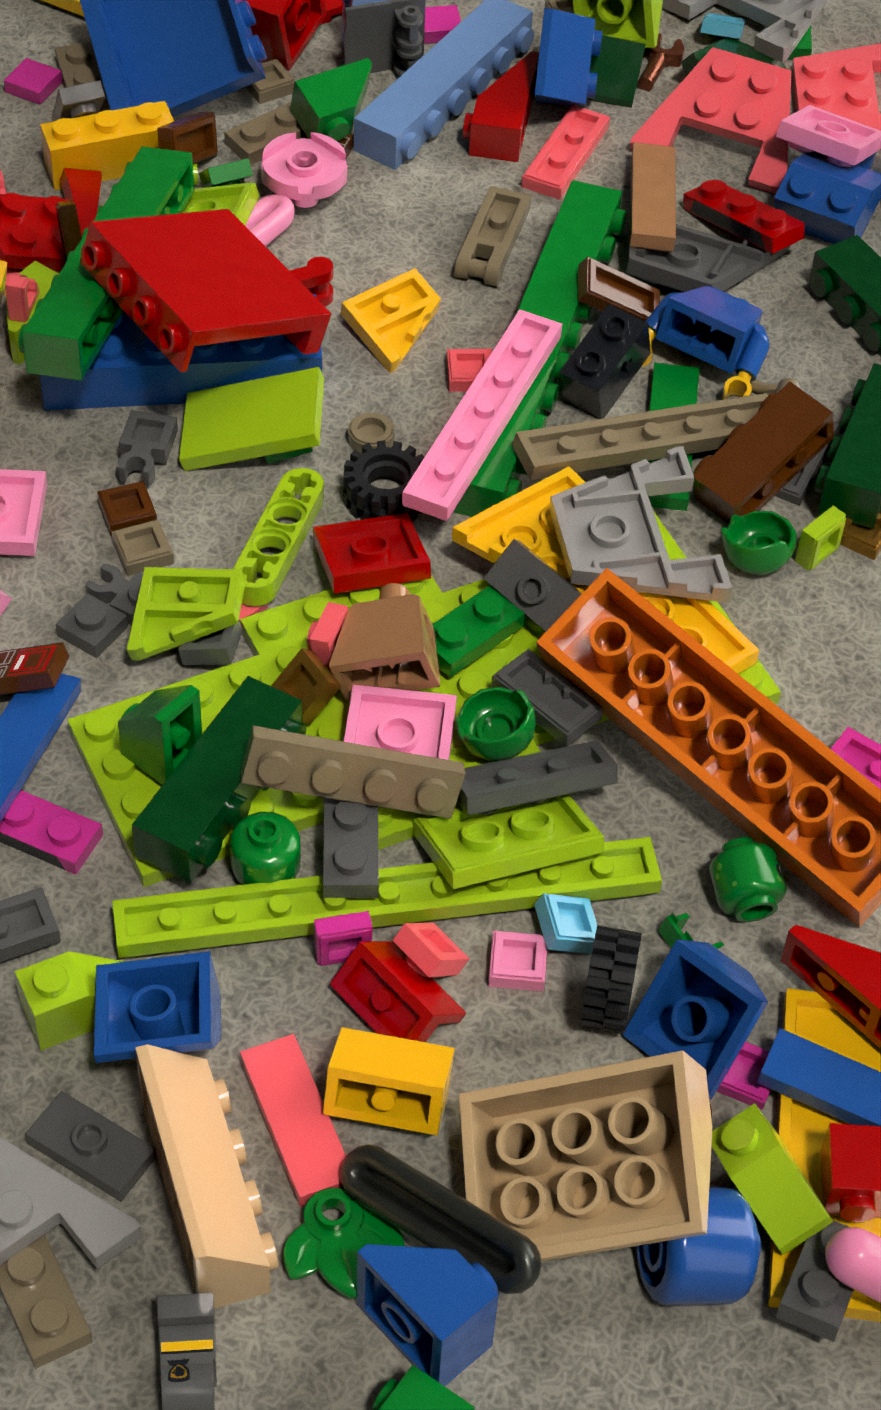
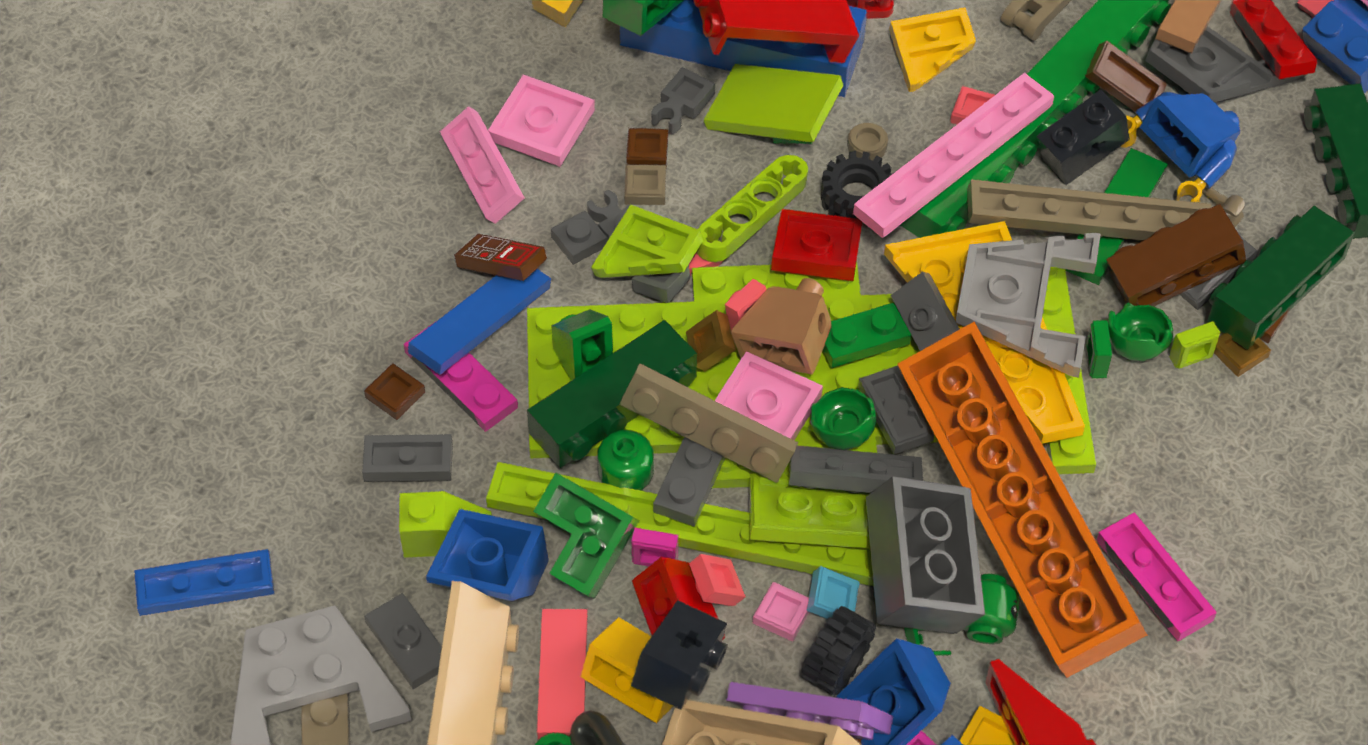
camera: 25 degrees right, 5 degrees up
(273, 932) = (596, 530): none -> green brick
(445, 1042) = (680, 654): none -> black brick
(618, 1046) = (852, 716): none -> medium lavender plate
(662, 839) = (924, 555): none -> dark grey brick
(735, 568) = (1098, 349): none -> green tile

